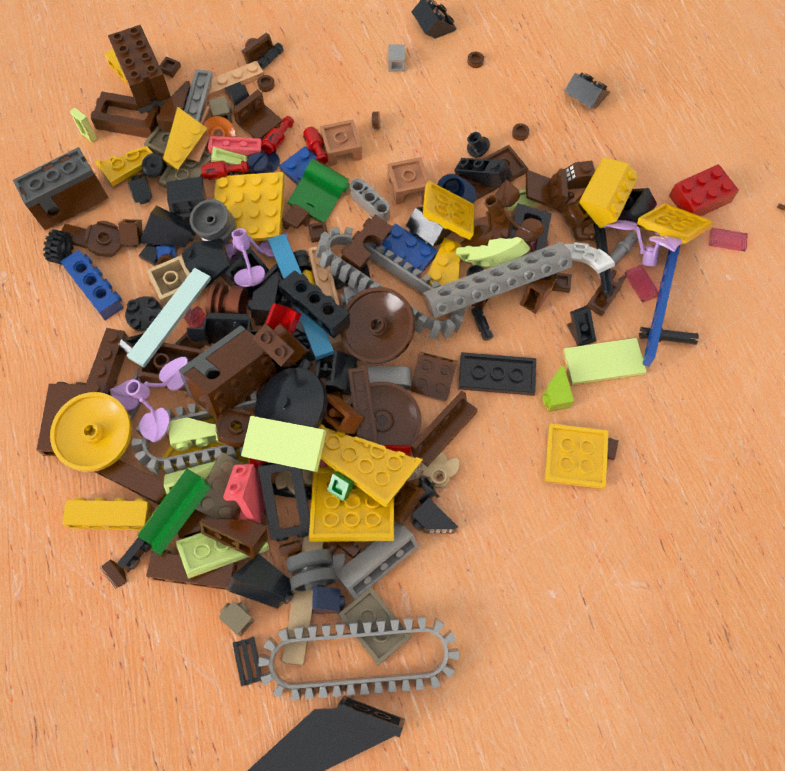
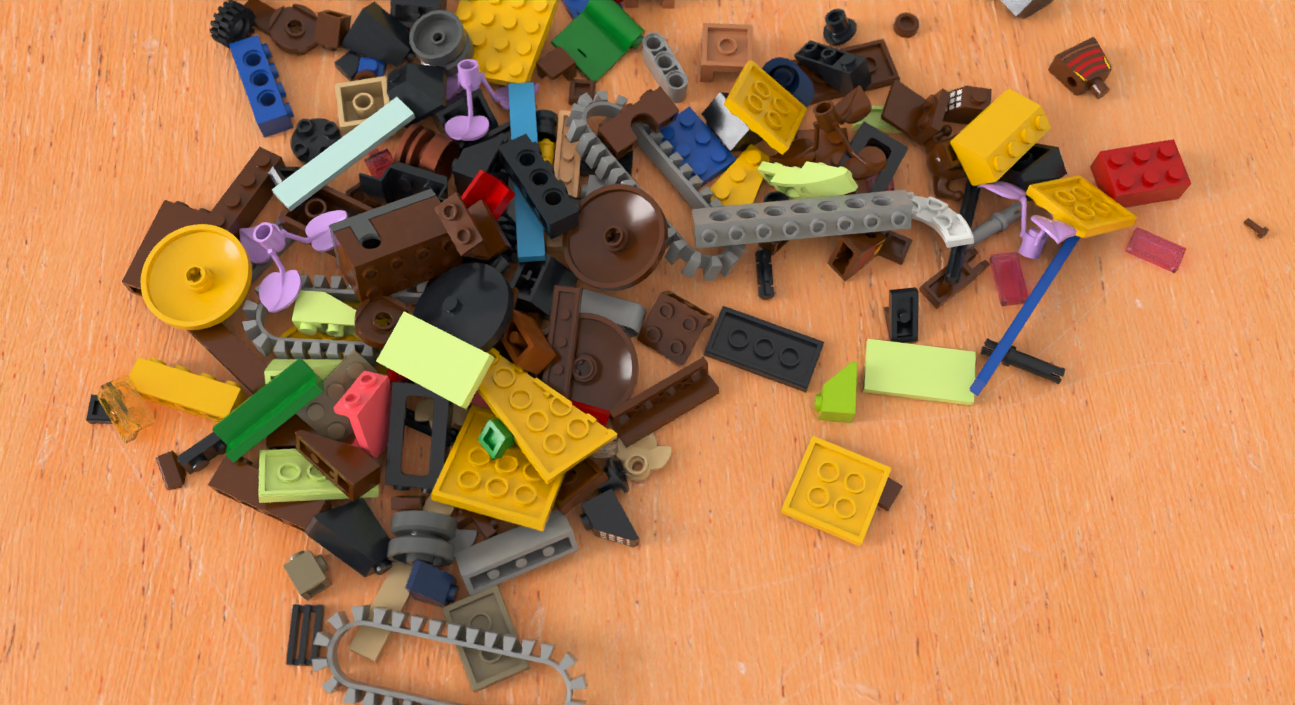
camera: 15 degrees right, 0 degrees up
(49, 546) = (96, 413): none -> black tile
(67, 539) = (125, 407): none -> clear yellow bracket
(644, 132) = (1082, 68): none -> reddish brown torso

